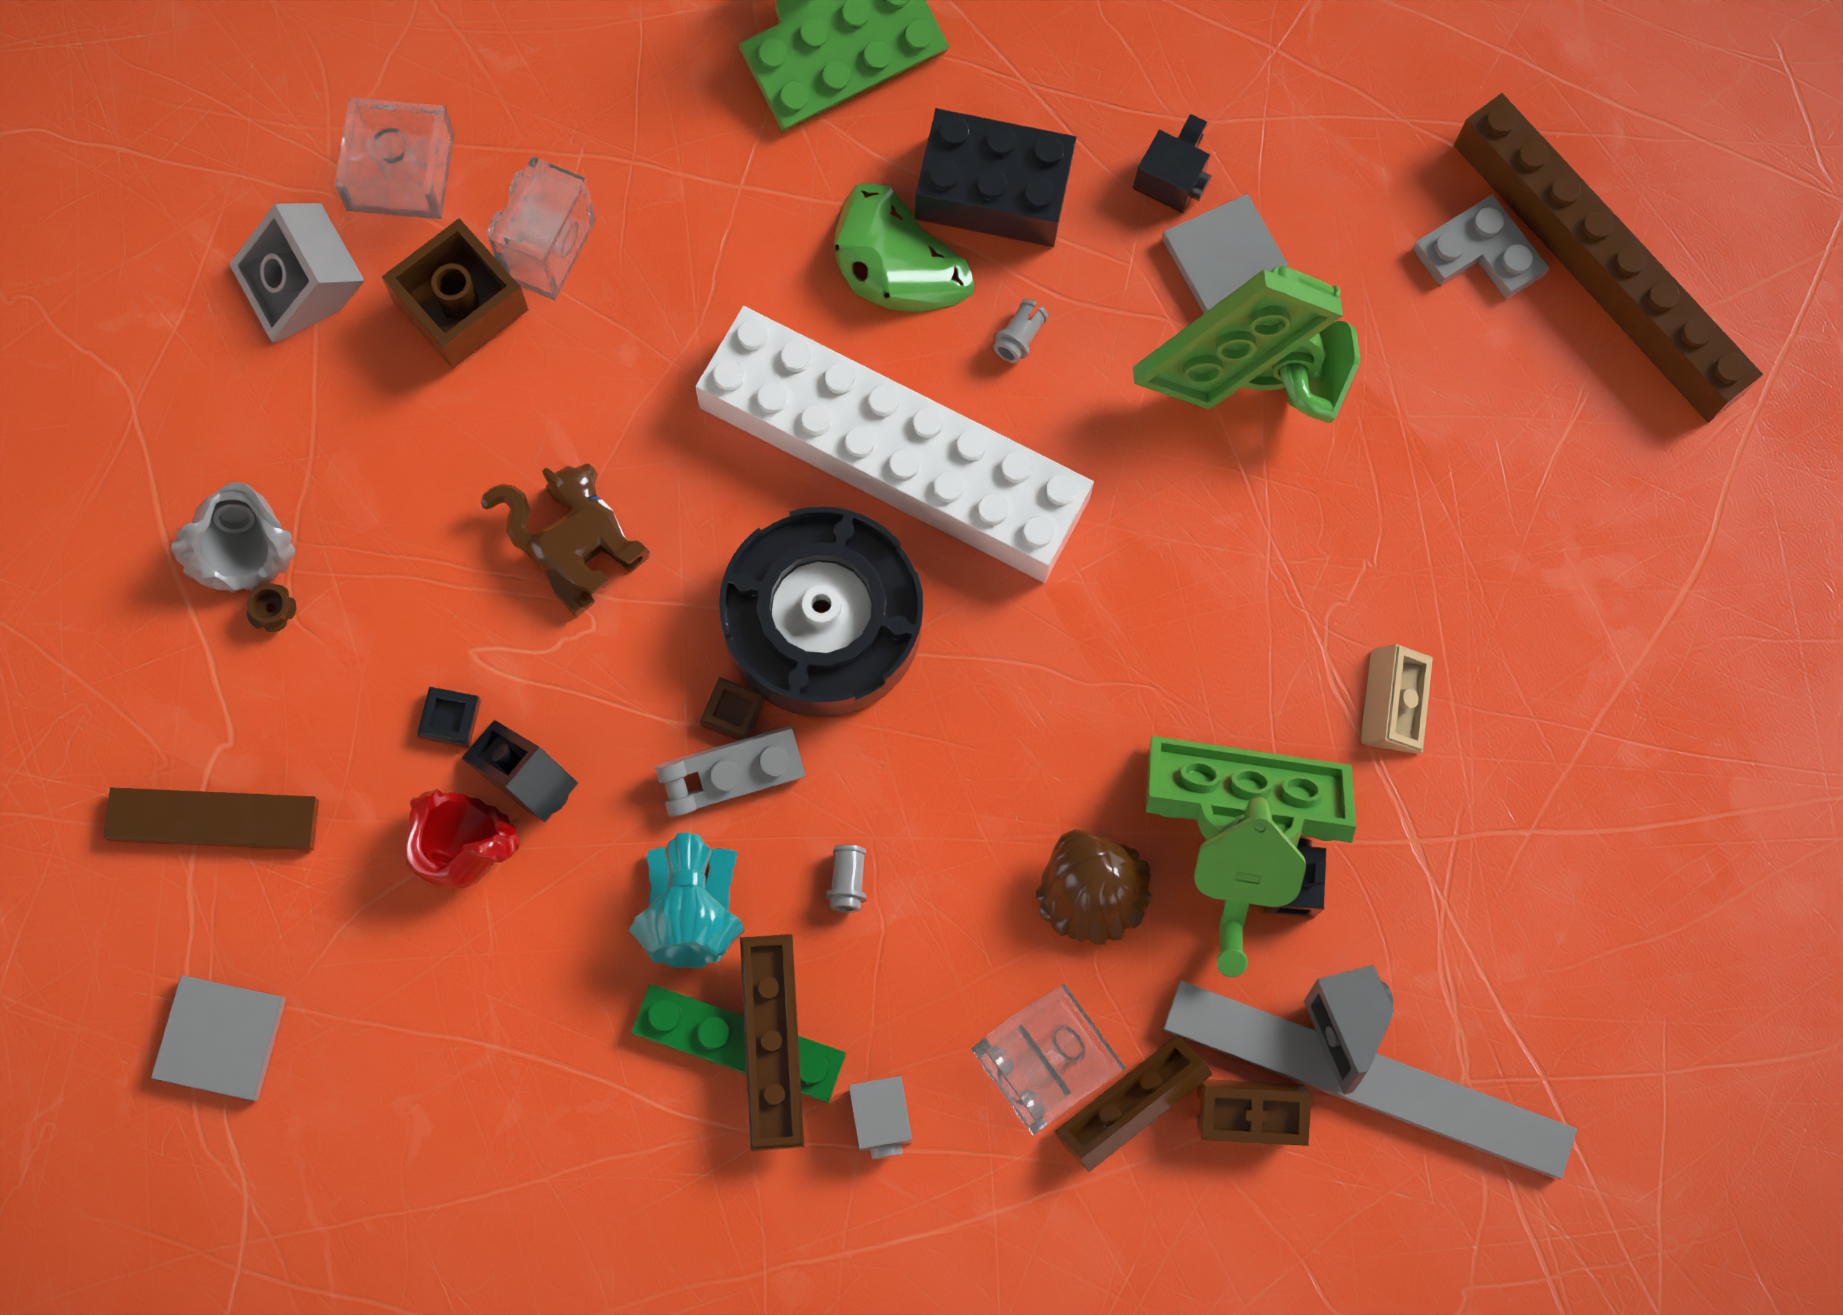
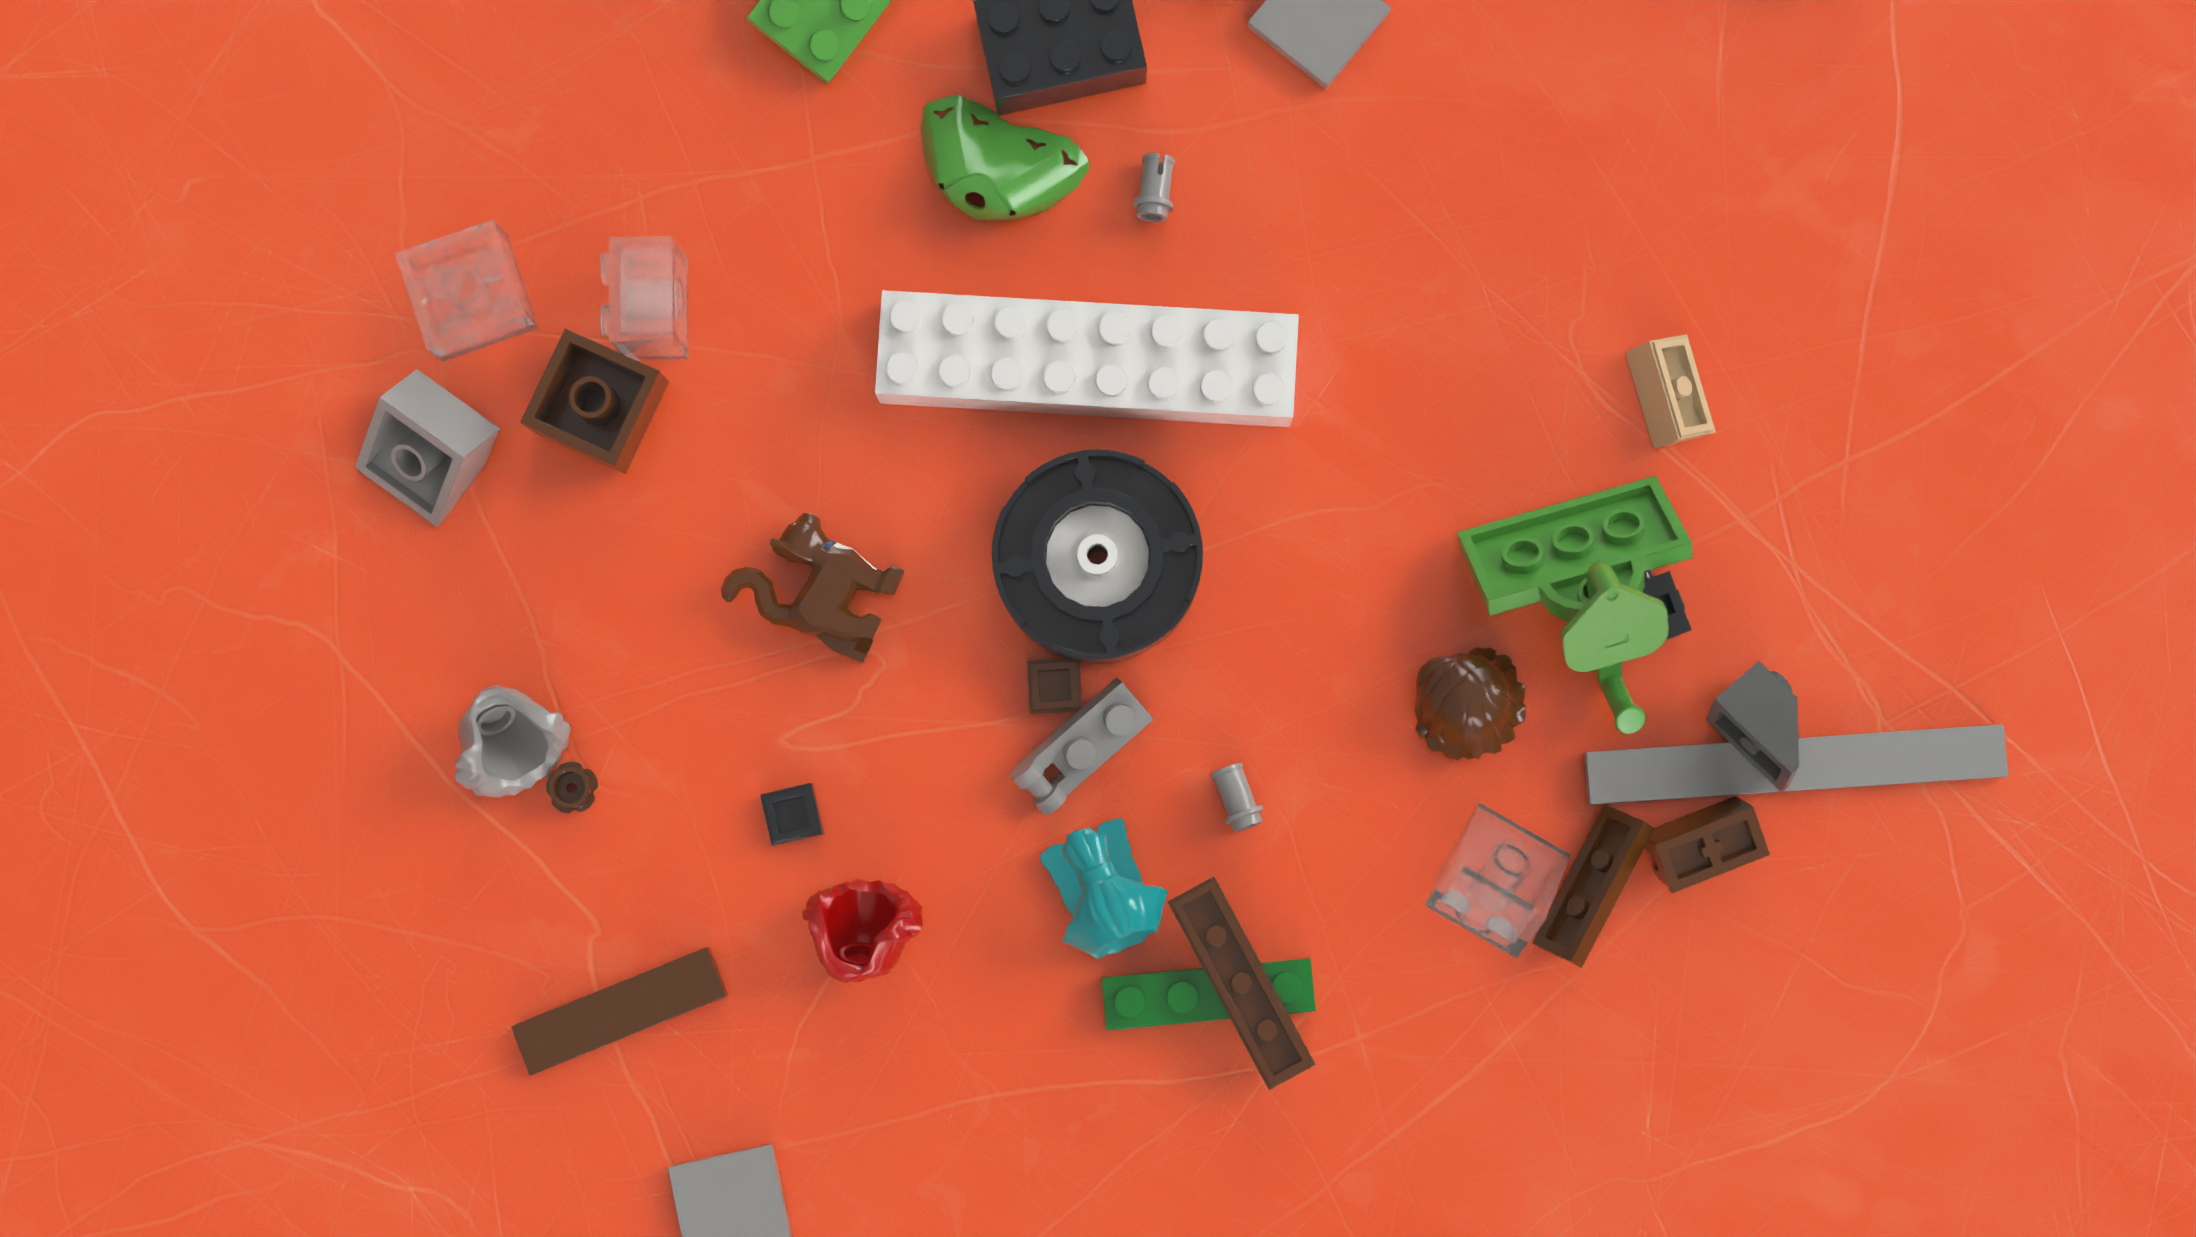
camera: 15 degrees left, 10 degrees up
(520, 770) = (885, 836): black slope -> none
(881, 1117) = (1370, 1003): light grey brick -> none
(1262, 337) = (1405, 102): bright green plate -> none

